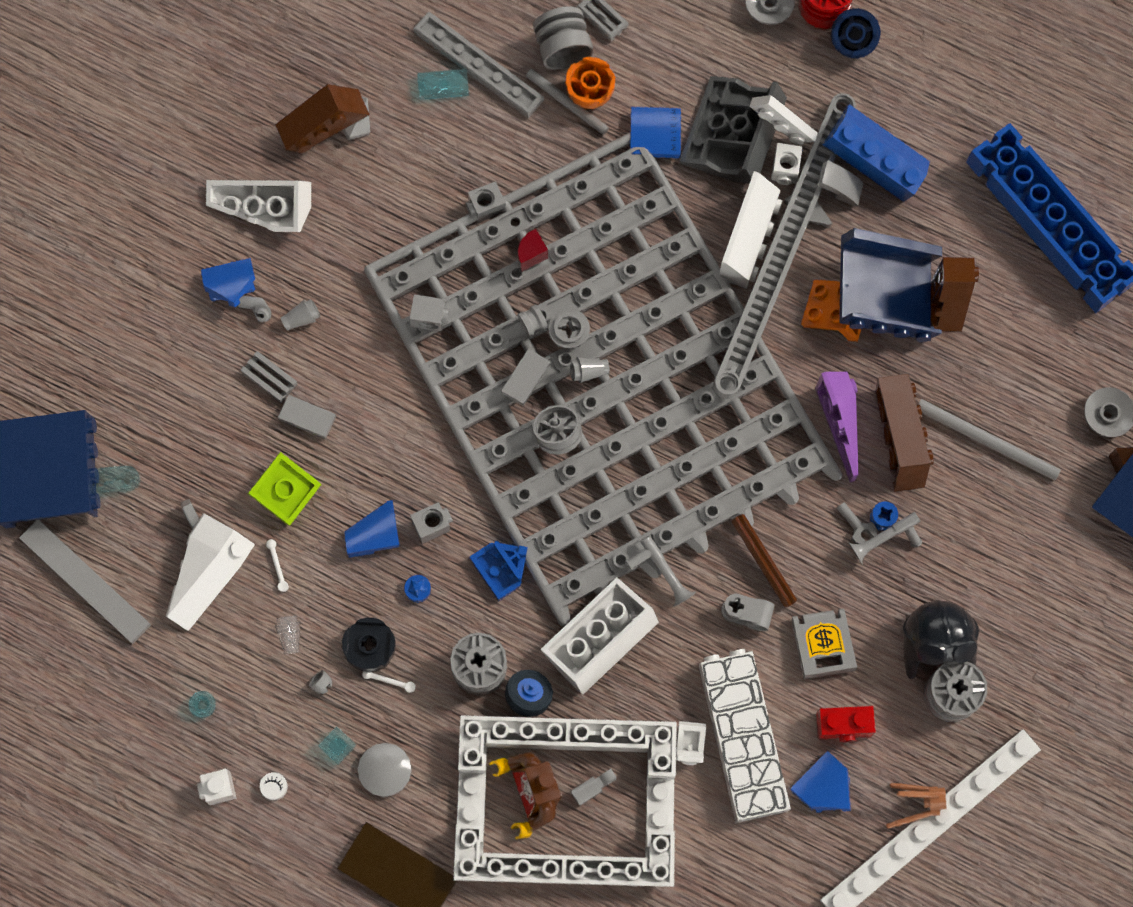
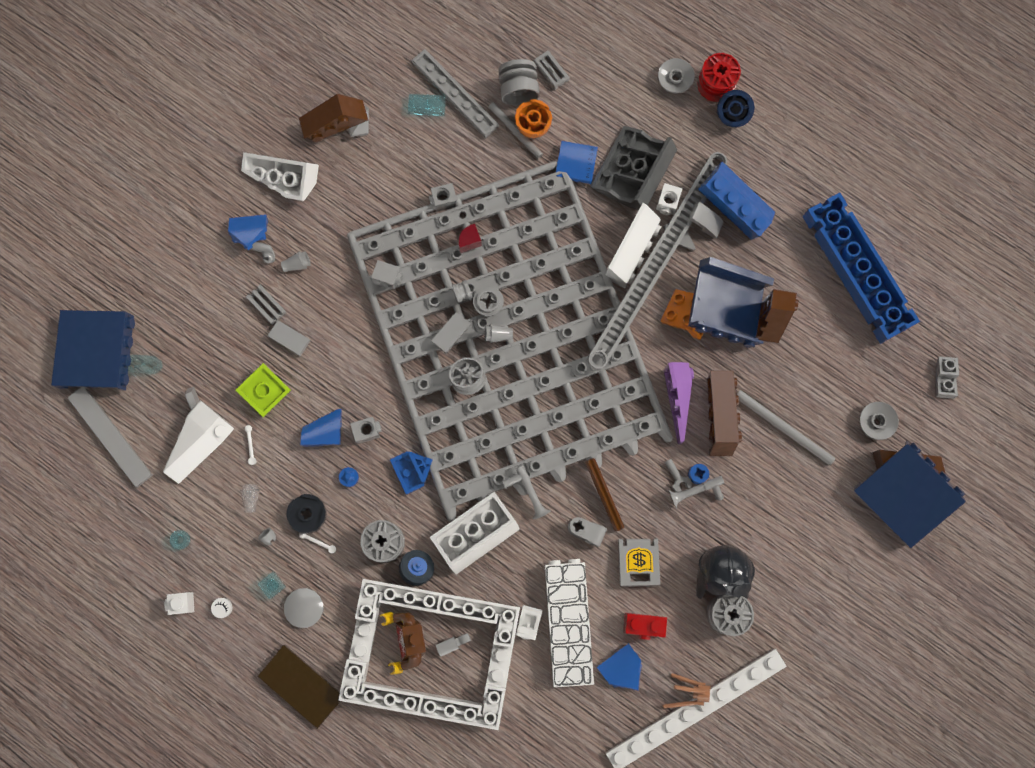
camera: 10 degrees right, 5 degrees up
(783, 119) = (671, 166): white plate -> none

